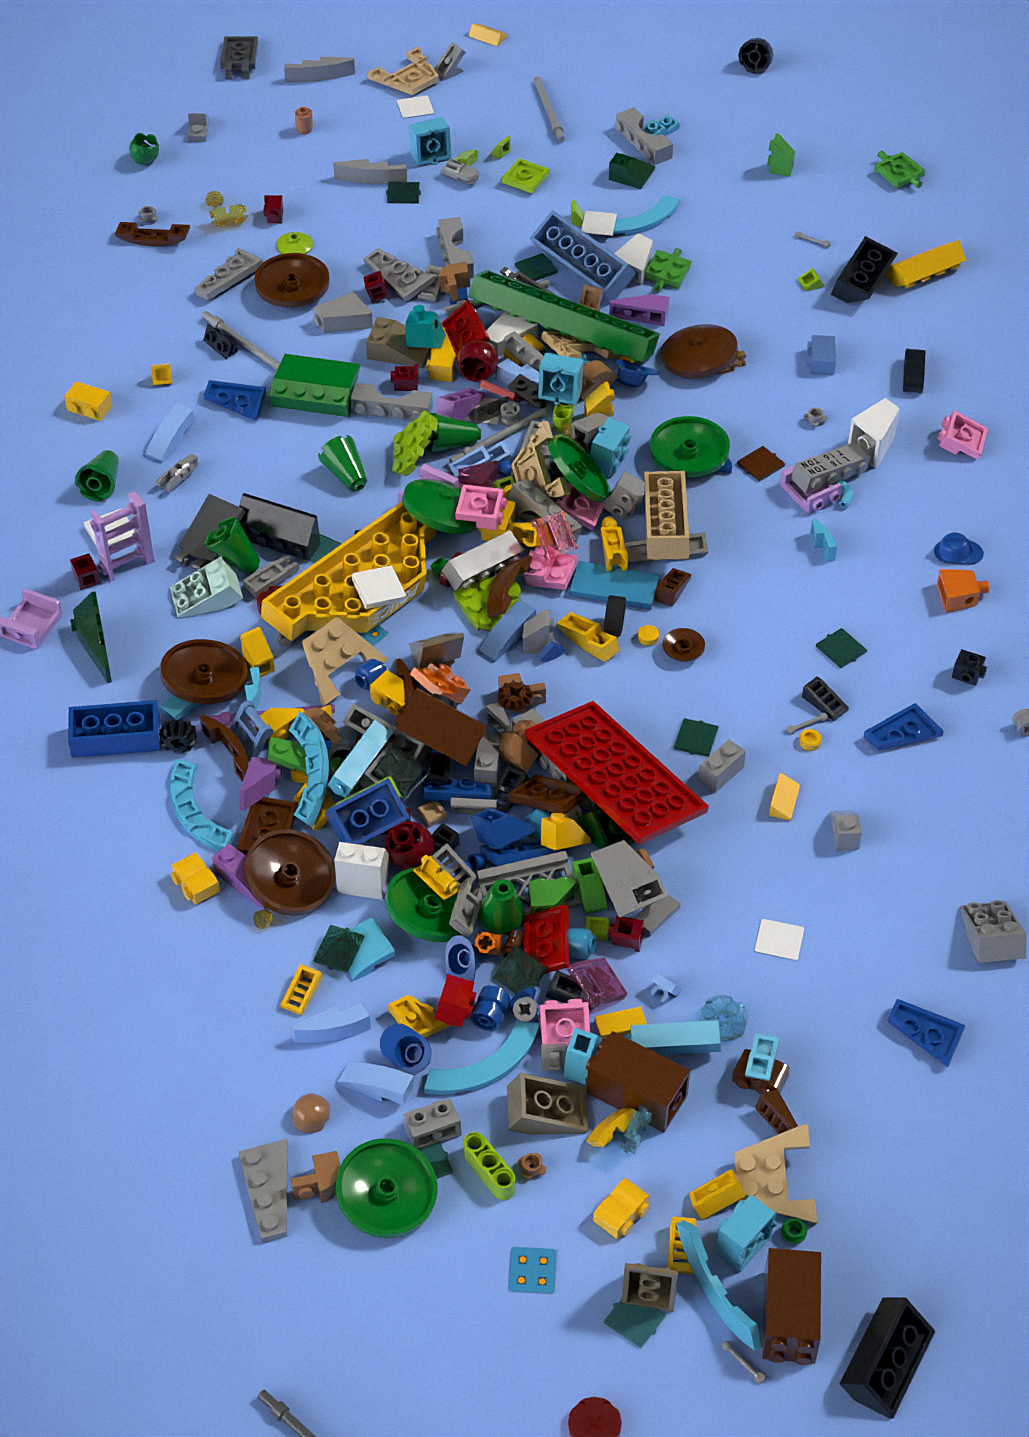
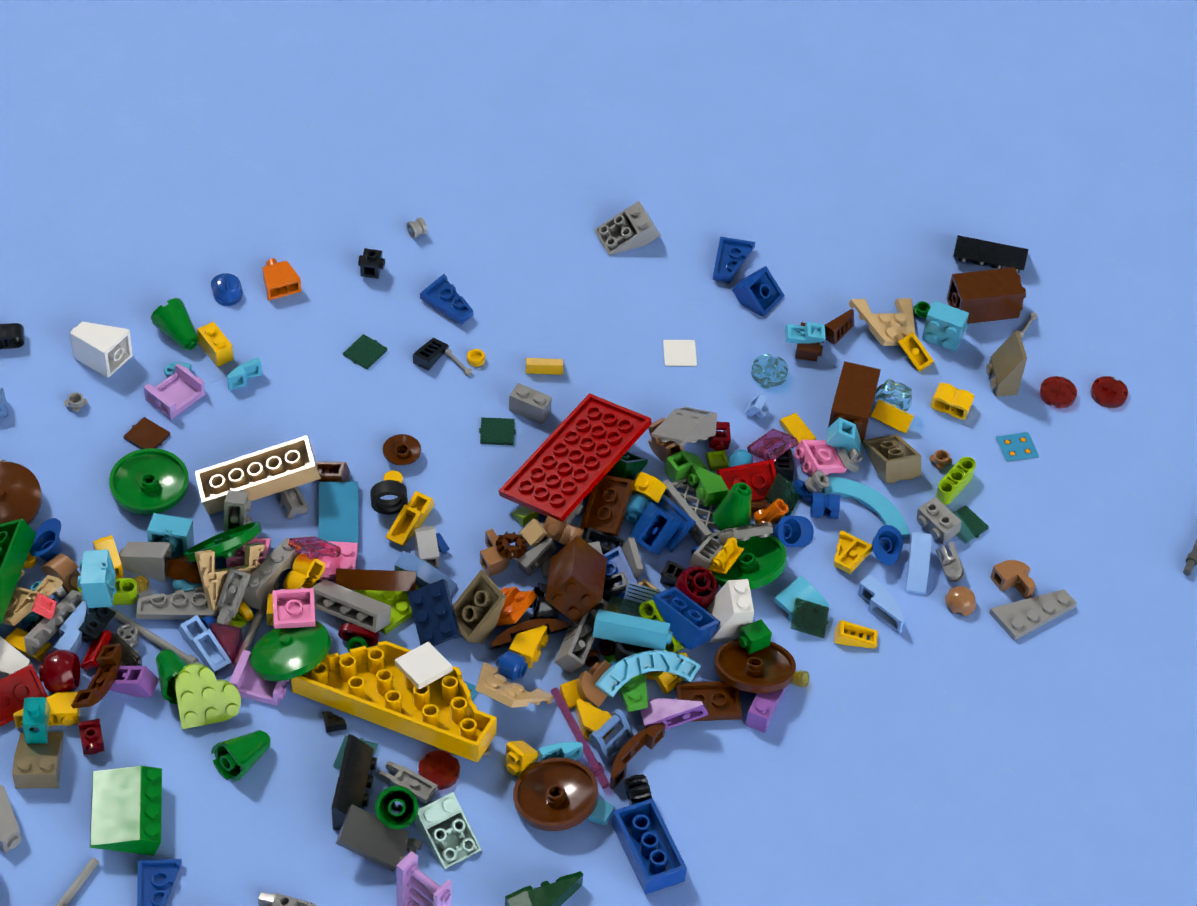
camera: 110 degrees left, 0 degrees up
(188, 811) = (705, 772): medium azure tile -> none
(195, 878) = (783, 737): yellow brick -> none
(323, 879) = (755, 636): none -> green brick
(367, 1117) = (951, 562): none -> light grey arm
(368, 401) = (135, 719): light grey arch -> none
(386, 1188) = (1006, 531): green dish -> none
(439, 370) = (109, 663): none -> reddish brown slope
(450, 620) = (434, 613): none -> dark blue plate
(455, 1001) = (832, 524): red brick -> none
(477, 861) = (687, 543): blue hinge -> none
(517, 470) = (232, 595): none -> light grey hinge
(522, 713) = (534, 532): none -> tan tile
(544, 345) = (44, 606): none -> coral tile
(609, 1353) = (1058, 392): none -> clear red tile
(613, 544) = (294, 518): yellow plate -> none
(634, 1321) = (1029, 387): piece -> none
(678, 1037) = (805, 389): medium azure brick -> none
(683, 1268) = (952, 369): yellow slope -> none
(738, 1322) = (976, 348): medium azure tile -> none
(830, 467) = (146, 370): light grey brick -> none
(846, 830) = (563, 321): light grey slope -> none
(855, 1040) = (758, 291): none -> blue slope
(869, 522) = (215, 344): none -> yellow brick
(901, 494) = (176, 323): none -> green cone
(962, 435) = (83, 294): bright pink plate -> none

